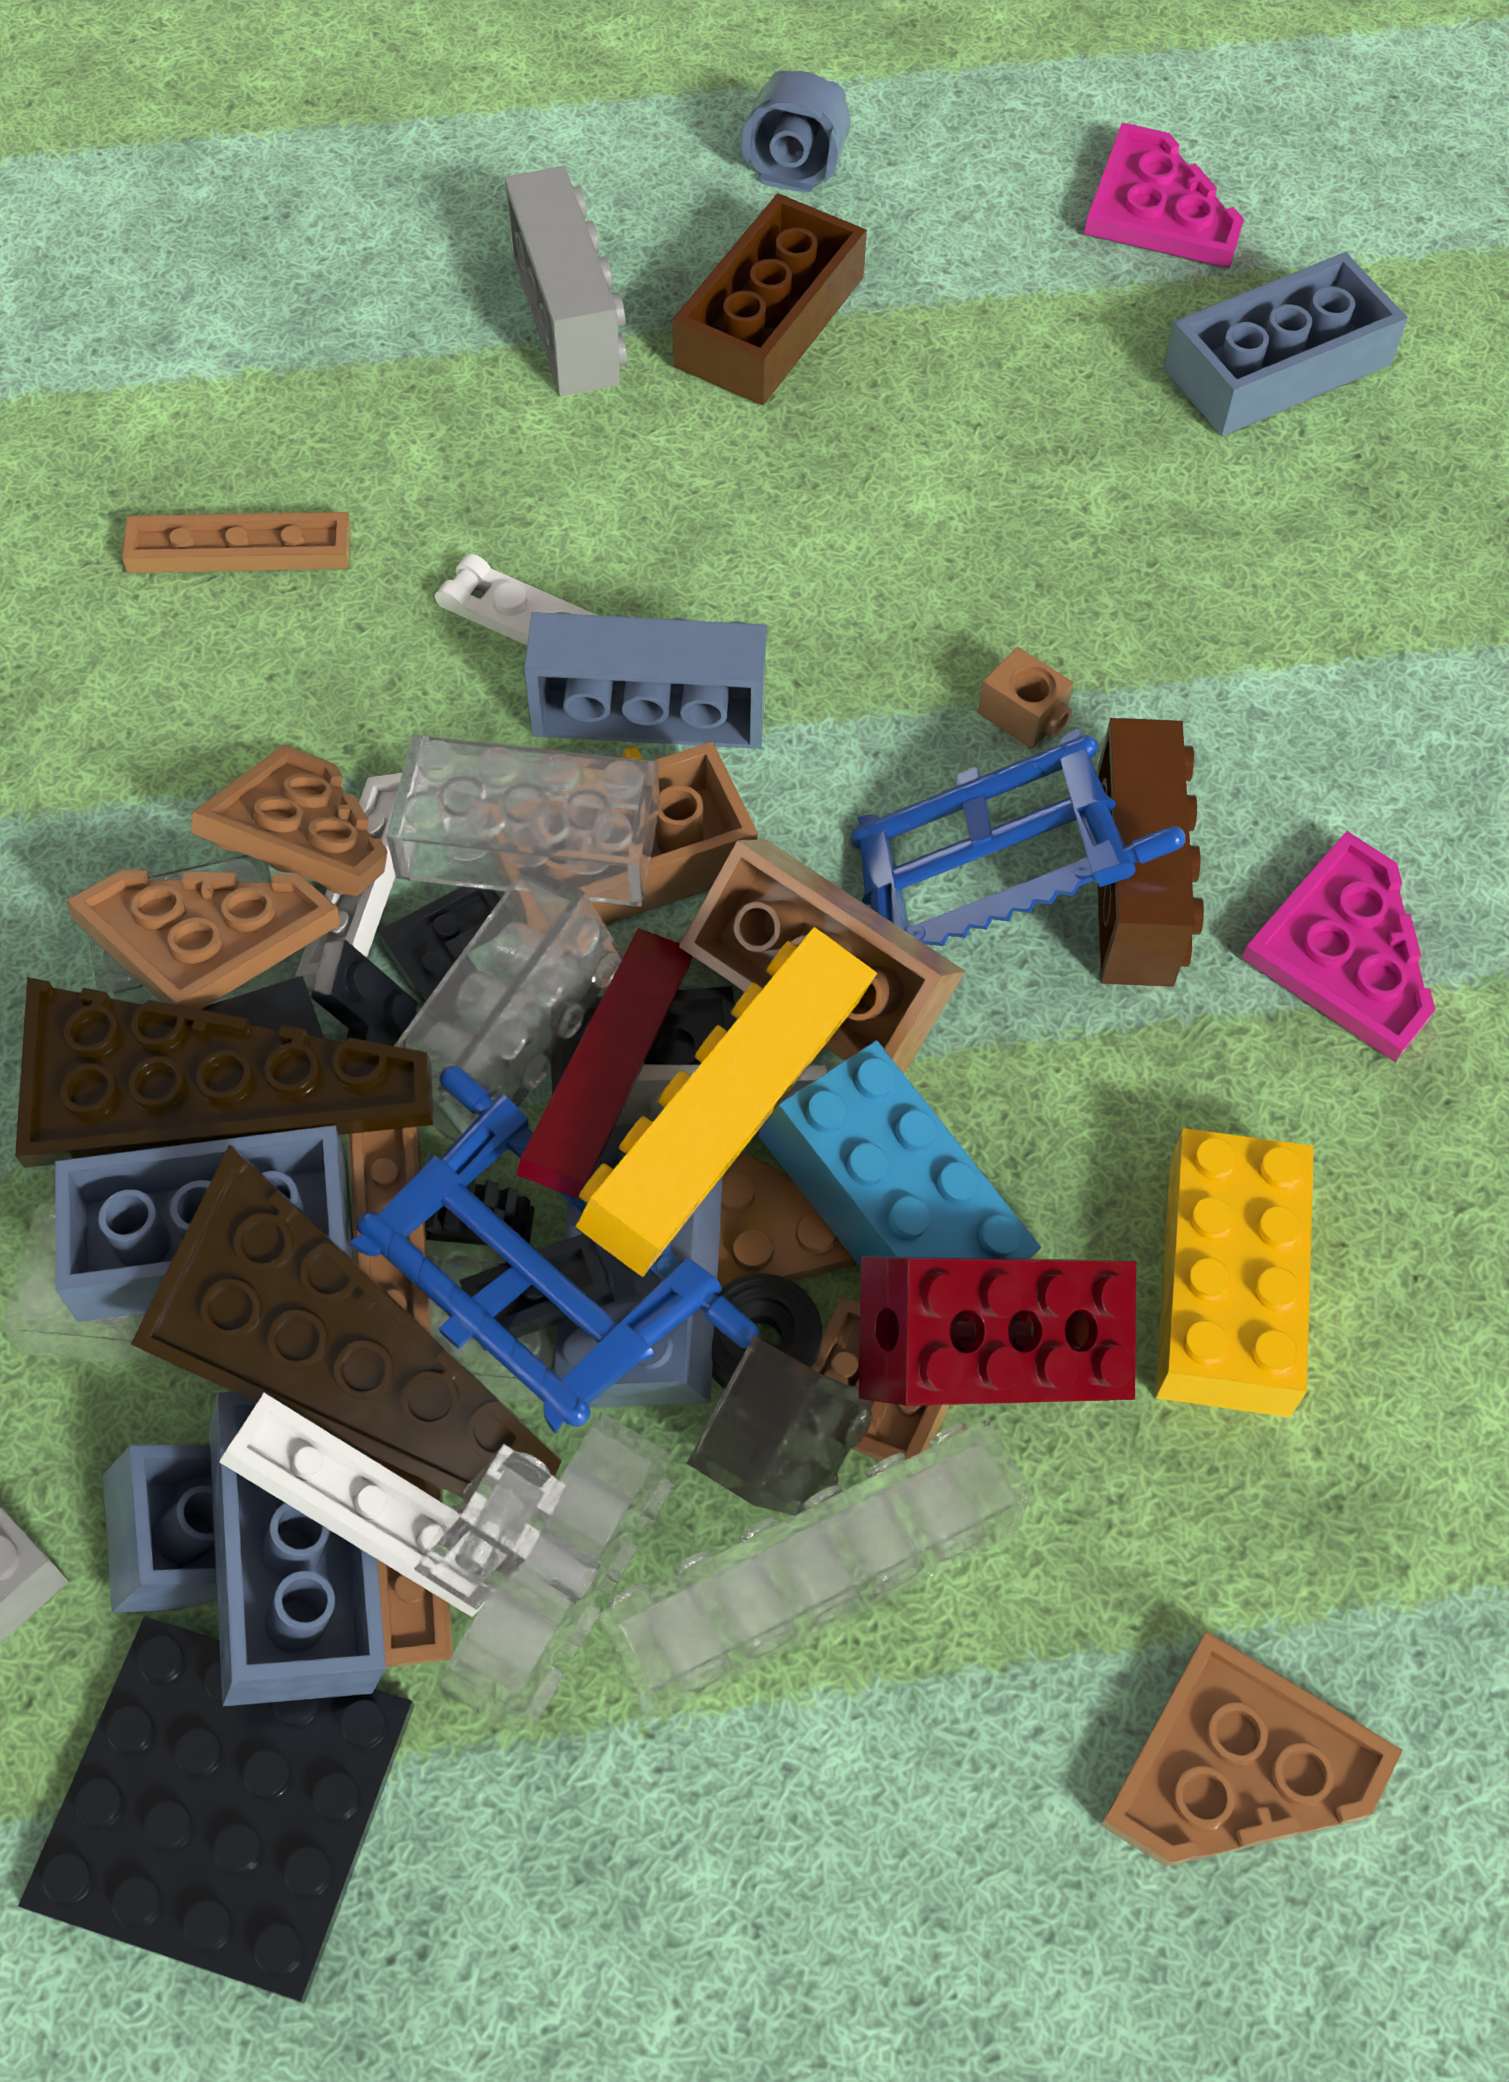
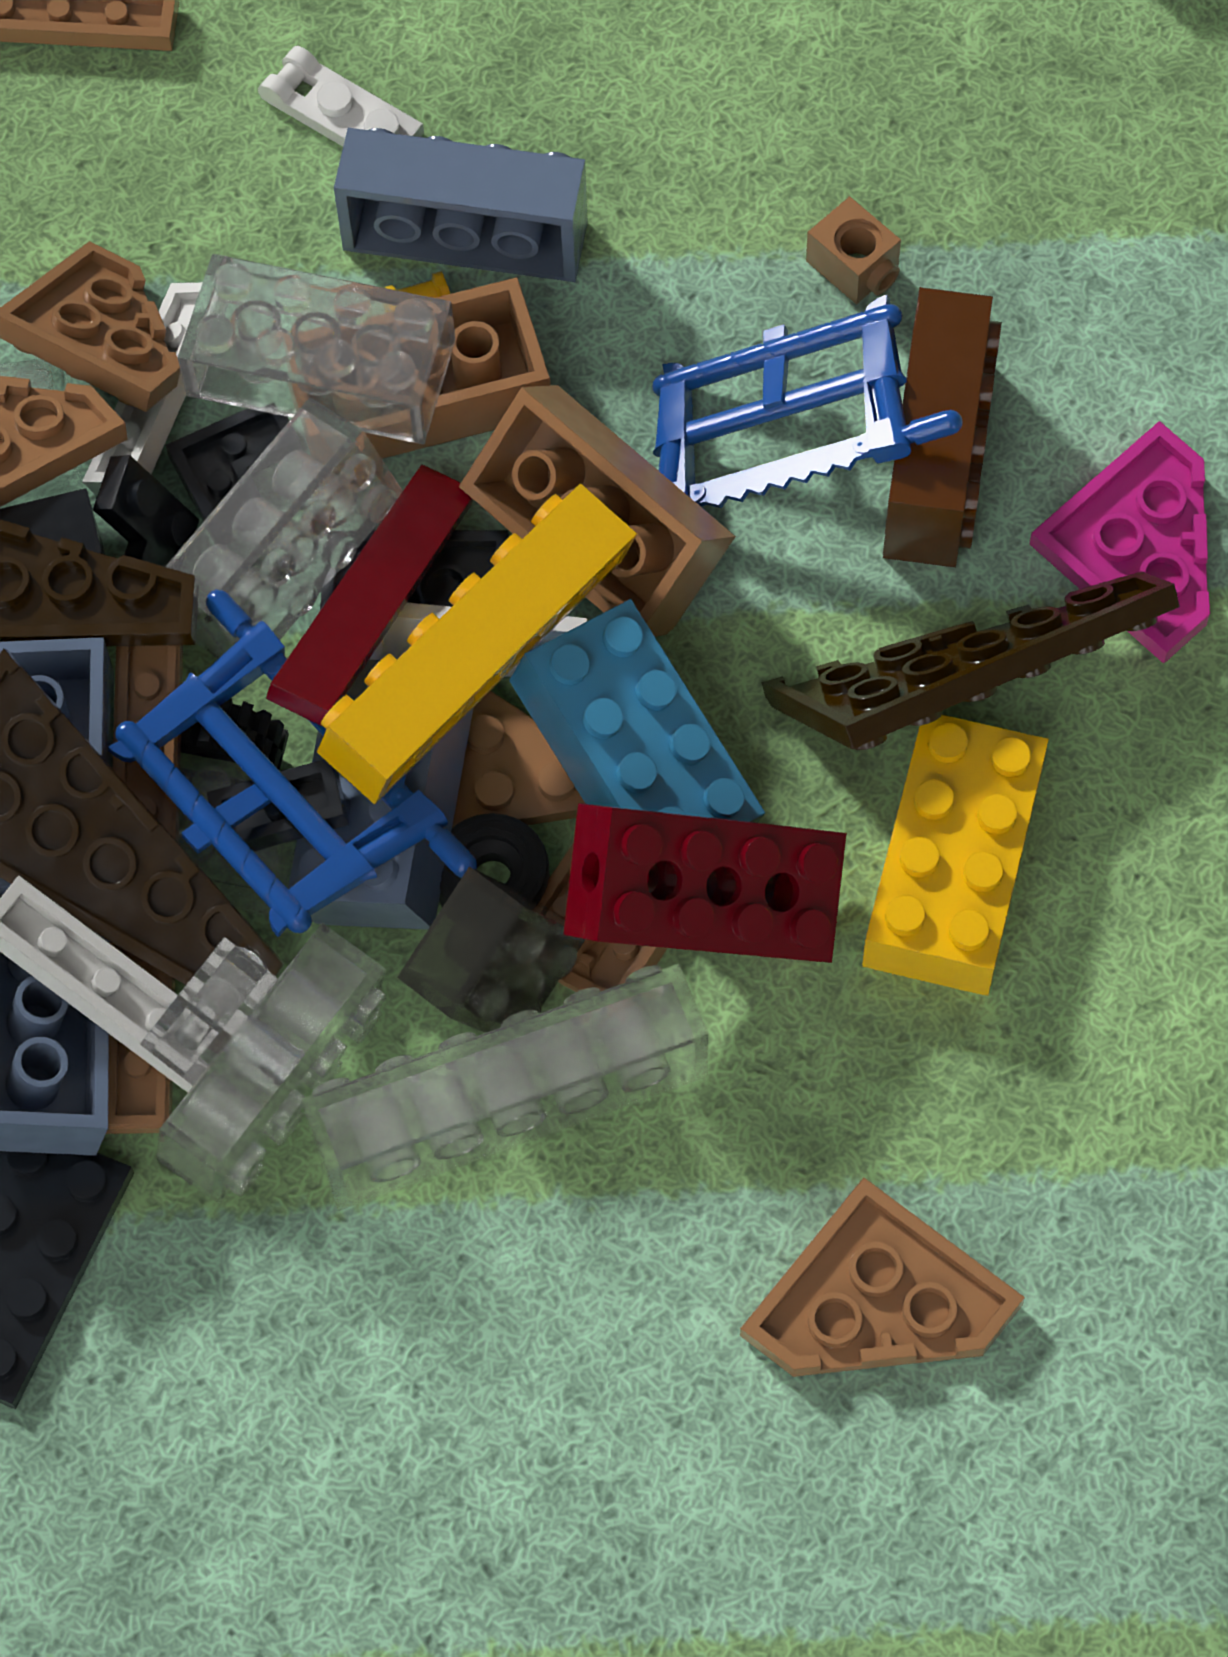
camera: 10 degrees right, 5 degrees up
(1200, 1083) = (958, 664): none -> dark brown wing

